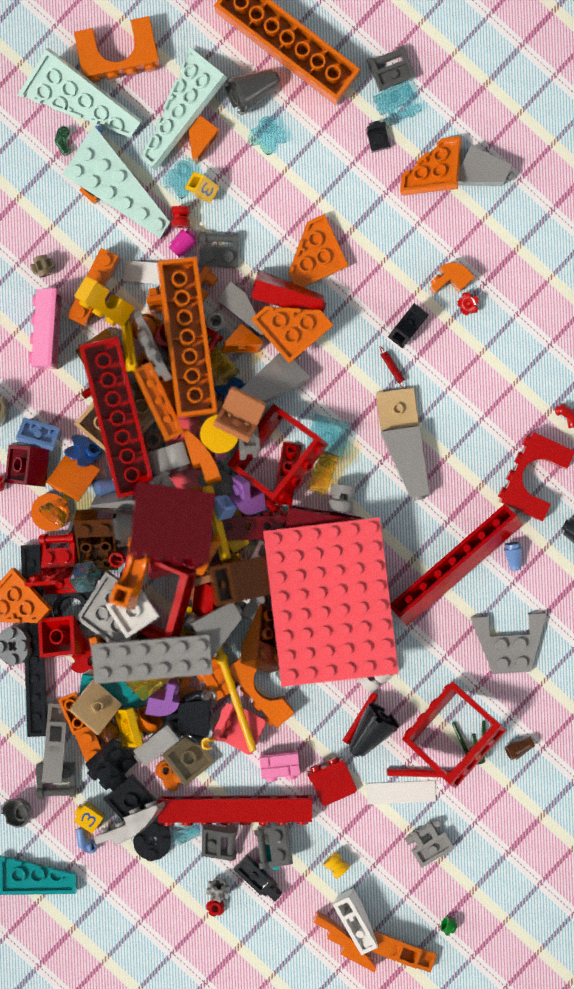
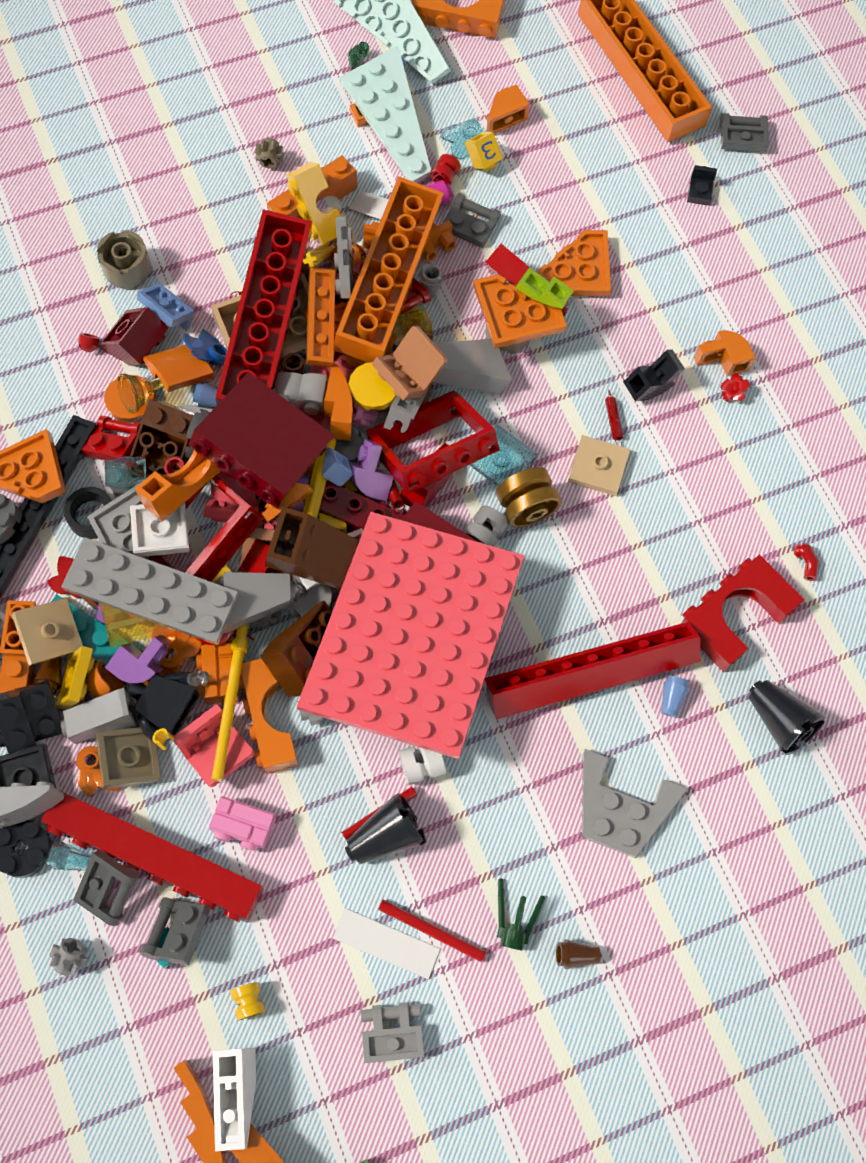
camera: 20 degrees right, 20 degrees down
(46, 328) = (238, 211): bright pink slope -> none
(53, 580) = (89, 462): red bracket -> none
(60, 637) = (54, 533): red slope -> none
(185, 102) = (501, 74): light aqua wing -> none
(213, 912) = (56, 989): red plate -> none
(237, 302) = (461, 271): light grey slope -> none
(242, 341) = (450, 313): orange slope -> none
(250, 89) = (582, 85): dark grey cone -> none
(257, 878) = (131, 968): black hinge -> none
(266, 138) = (578, 137): clear light blue plate -> none
(305, 305) = (538, 288): none -> lime slope
(323, 473) = (479, 488): clear yellow brick -> none
(332, 780) = (300, 877): red bracket -> none
(364, 466) = (528, 497): none -> pearl gold wheel
(394, 98) = (736, 165): clear light blue plate -> none
(408, 458) = (588, 520): light grey slope -> none
(435, 170) = (753, 240): orange plate -> none
(476, 753) = (508, 920): red window -> none
(483, 169) = (807, 262): light grey slope -> none

